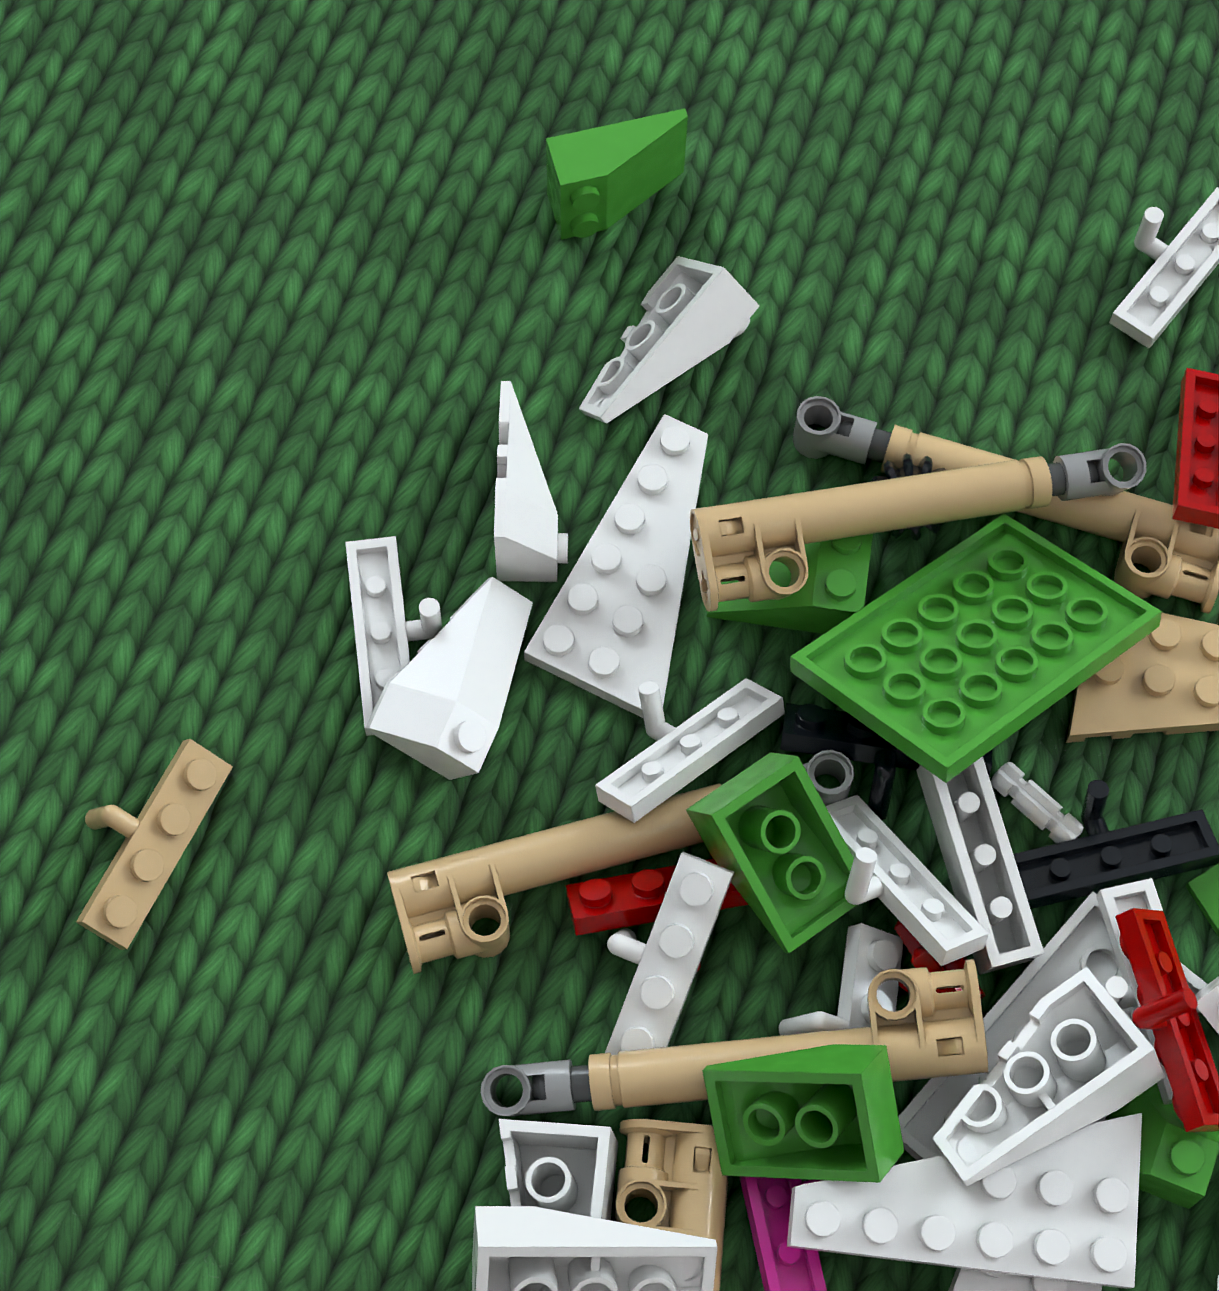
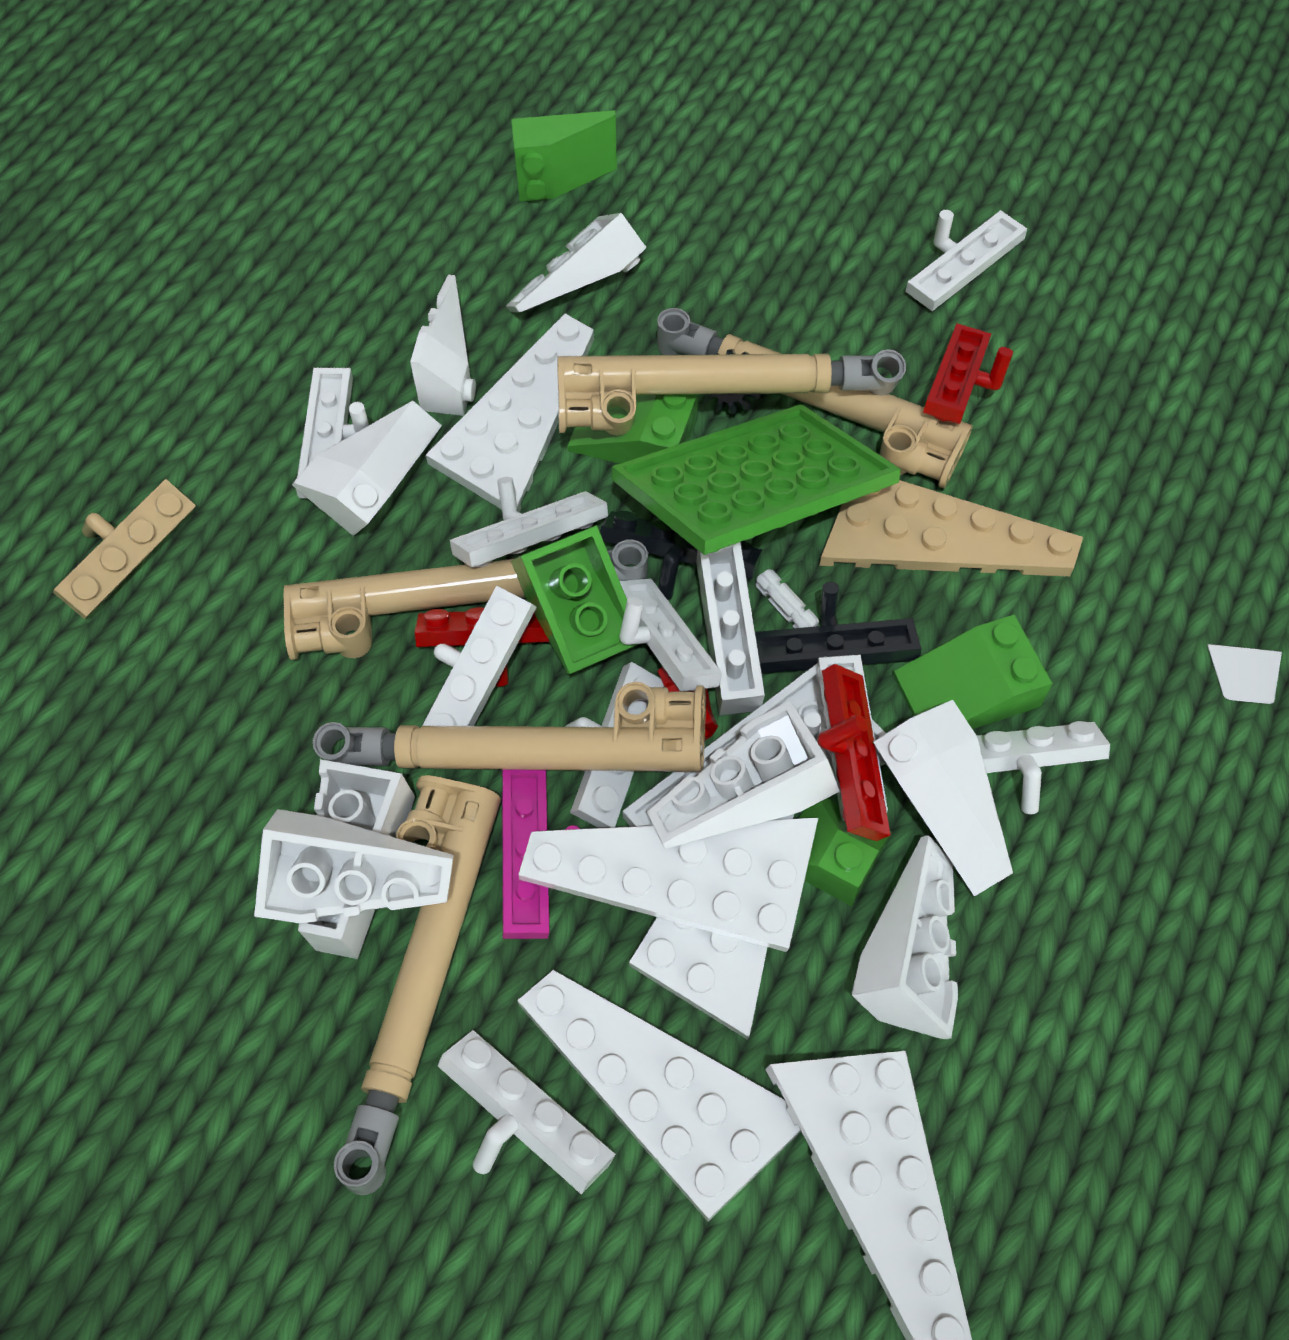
camera: 10 degrees right, 5 degrees down
(806, 1114) = (552, 780): bright green slope -> none

